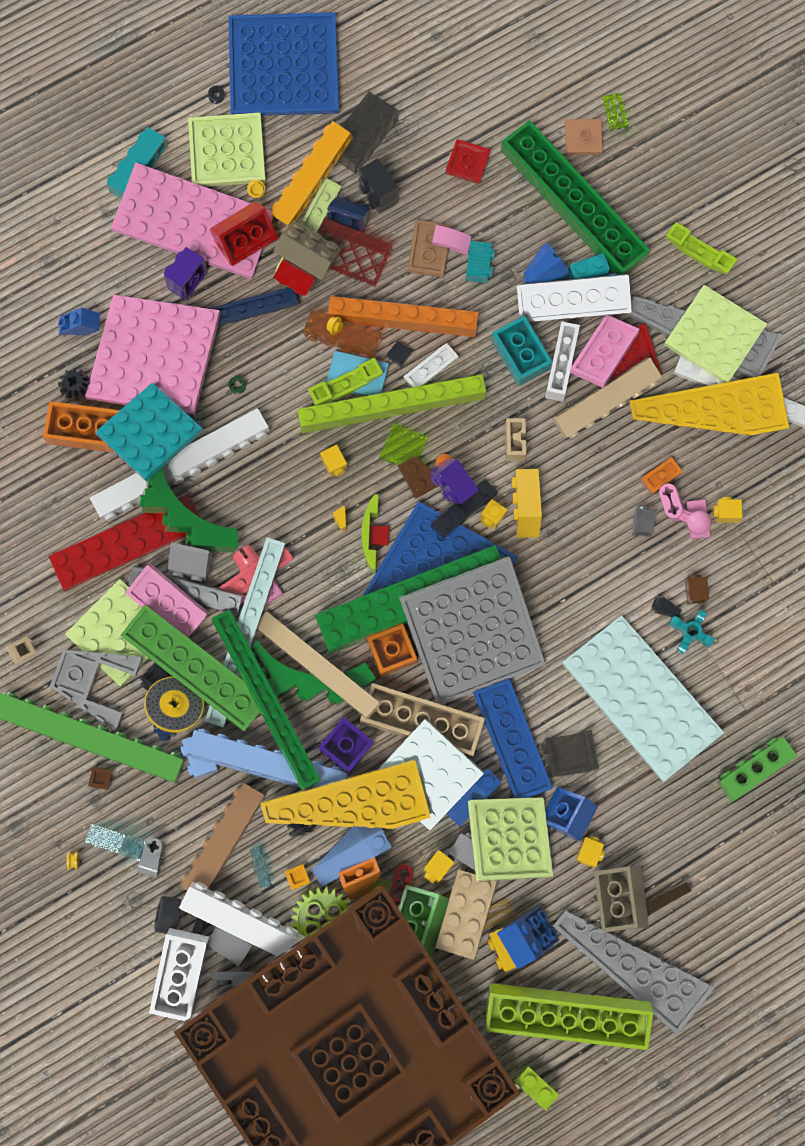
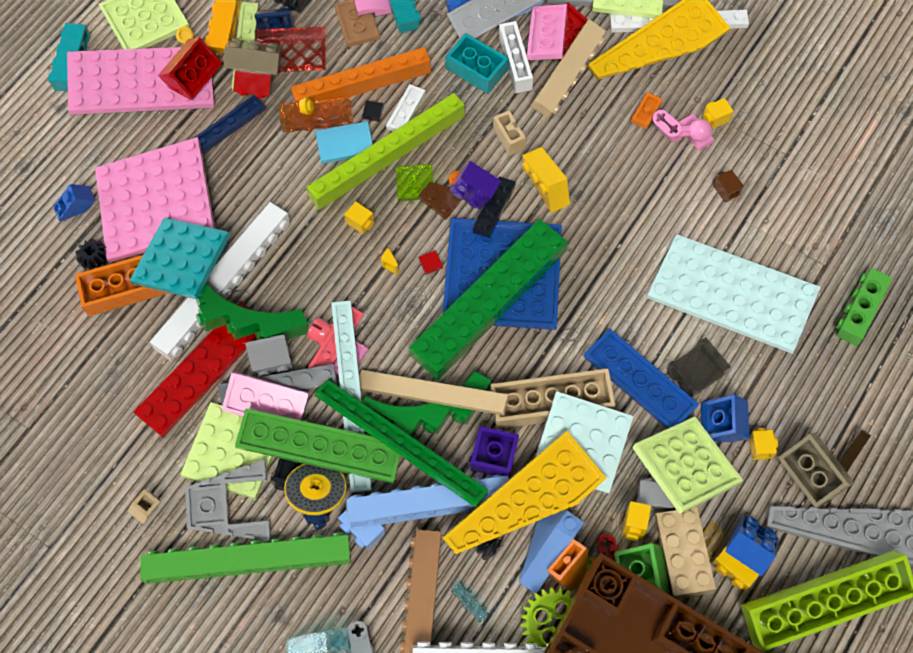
camera: 20 degrees left, 10 degrees down
(100, 778) = (275, 591): reddish brown plate -> none
(185, 273) = (152, 121): dark purple brick -> none
(241, 388) = (245, 190): dark green bush -> none
(297, 877) = (509, 595): light orange plate -> none
(345, 384) = (339, 150): lime slope -> none
(371, 512) = (430, 281): lime slope -> none
(391, 650) = (493, 350): orange brick -> none
(472, 631) = (557, 299): light grey plate -> none
(478, 791) = (638, 431): blue slope -> none
(493, 514) = (522, 200): yellow brick -> none
(643, 522) = (652, 152): flat silver brick -> none
(665, 607) = (709, 211): black cone -> none
(678, 624) = (745, 214): teal pin -> none

